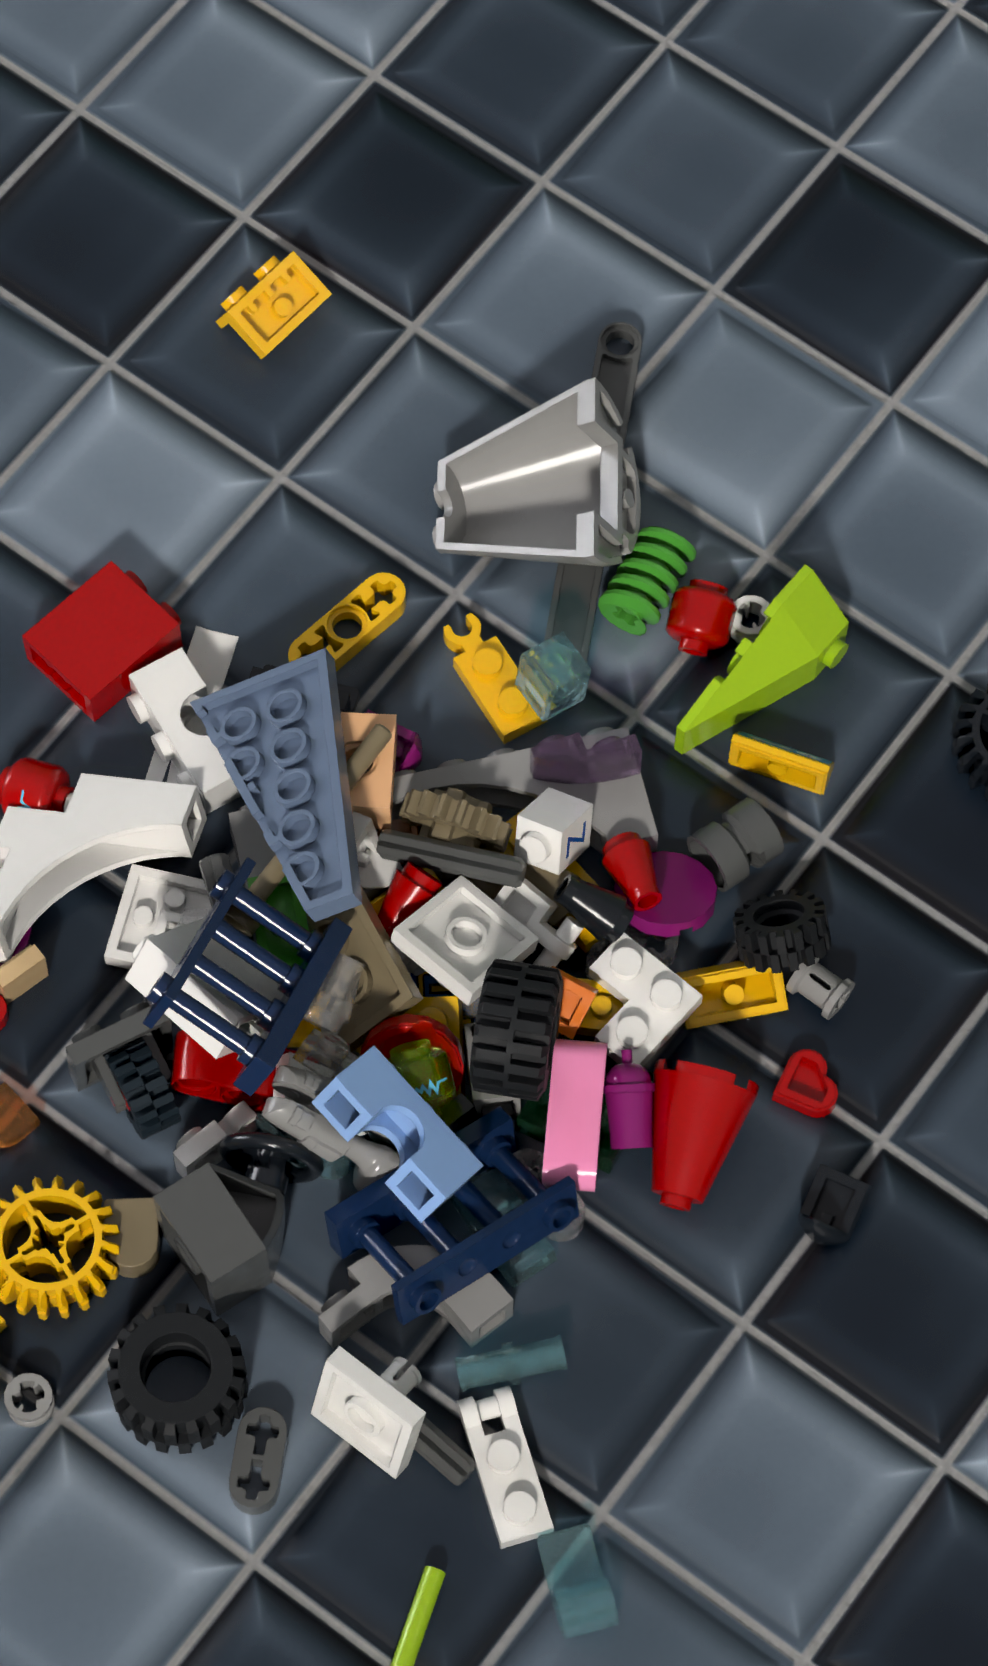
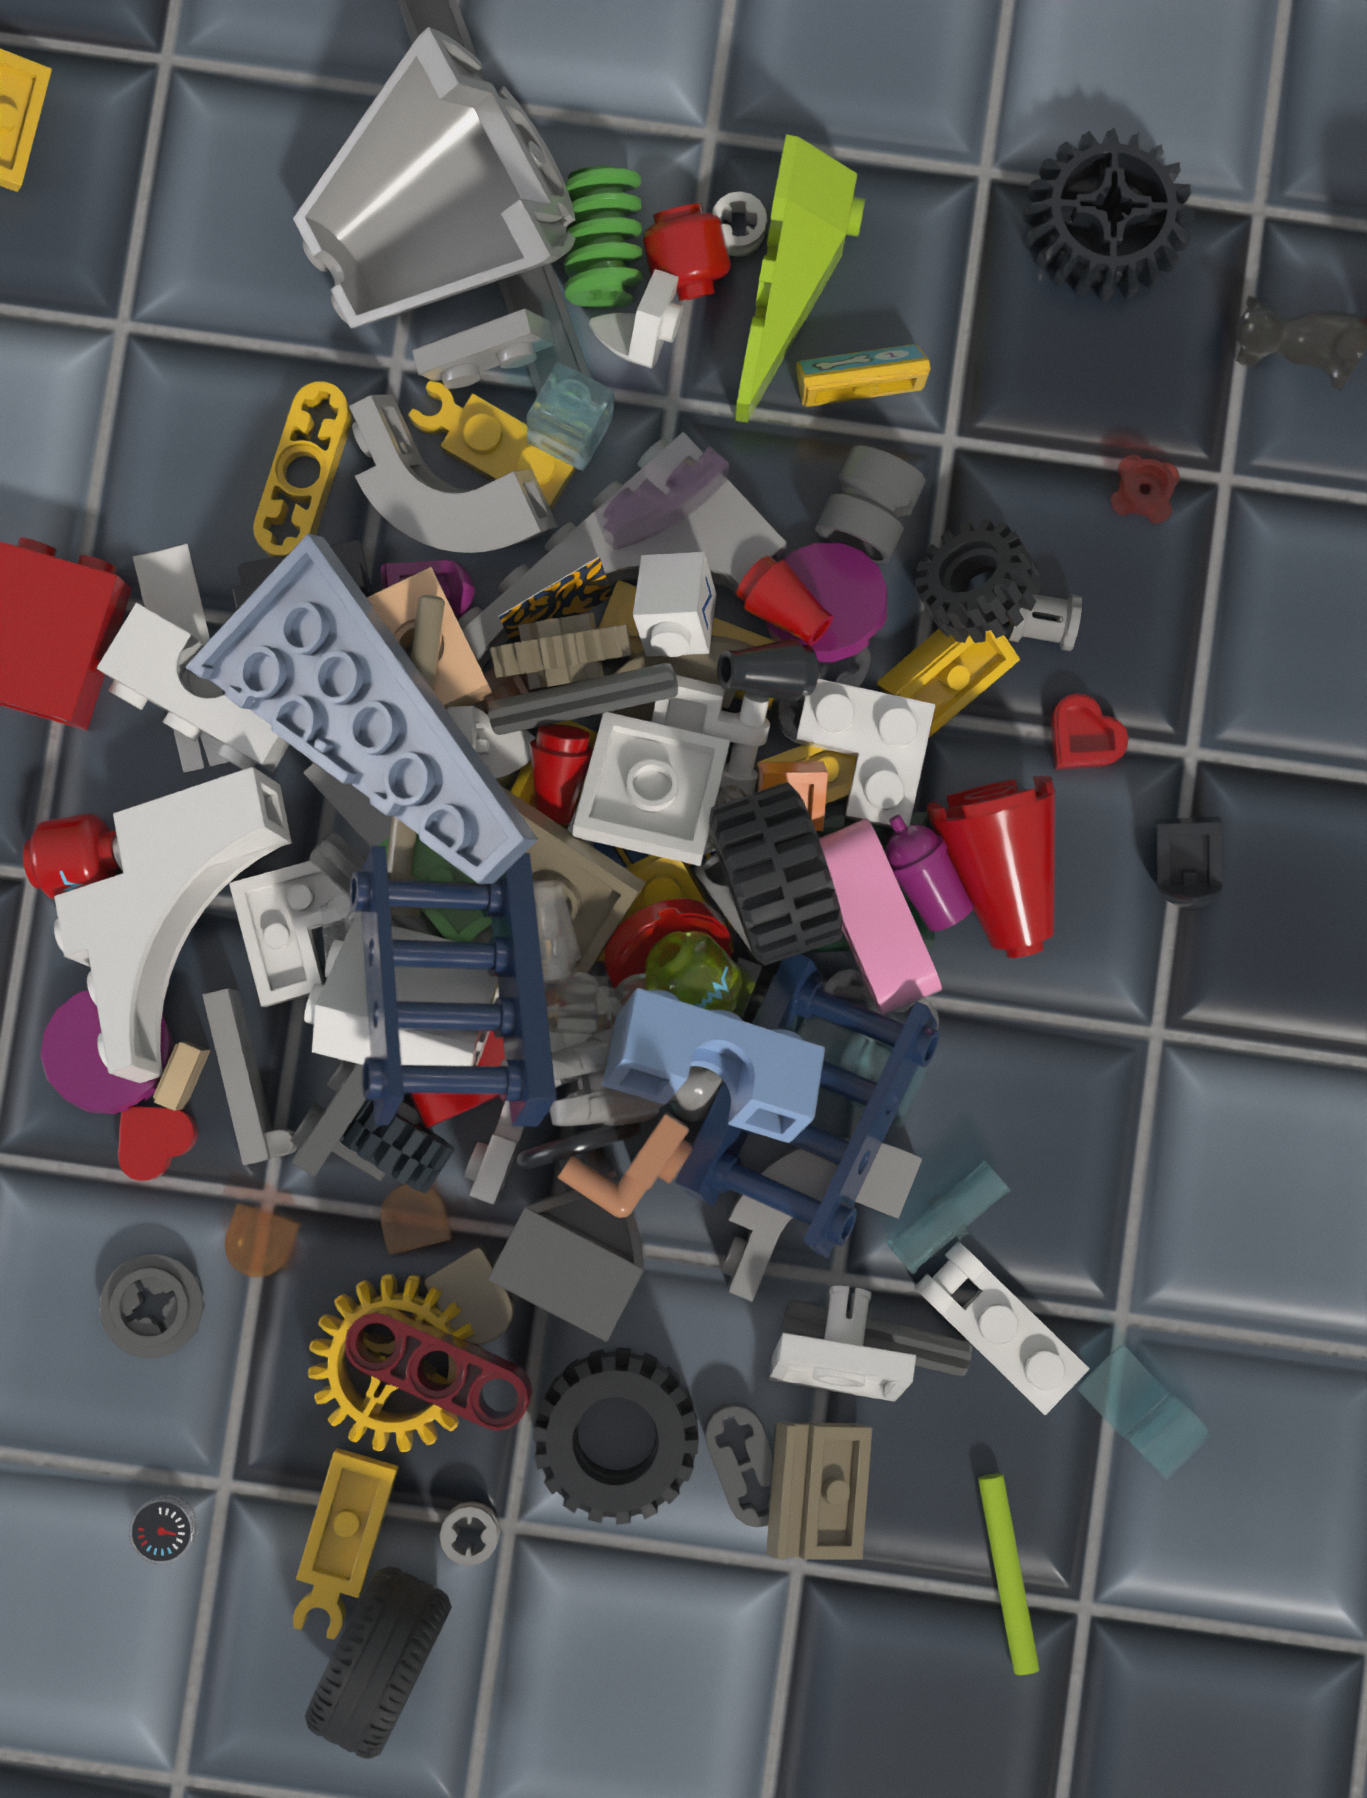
camera: 30 degrees left, 20 degrees up
(59, 1000) = (243, 1081): none -> light grey hinge
(75, 1223) = (406, 1370): none -> dark red beam
(122, 1161) = (414, 1219): none -> clear orange tile
(301, 1501) = (819, 1491): none -> dark tan plate
(322, 1174) = (659, 1157): none -> nougat plate
(459, 716) = (428, 507): none -> light grey arch
(487, 785) = (565, 598): none -> sticker
(520, 606) = (503, 342): none -> light grey plate
(647, 650) = (642, 334): none -> white plate
(946, 924) = (1158, 476): none -> clear red plate

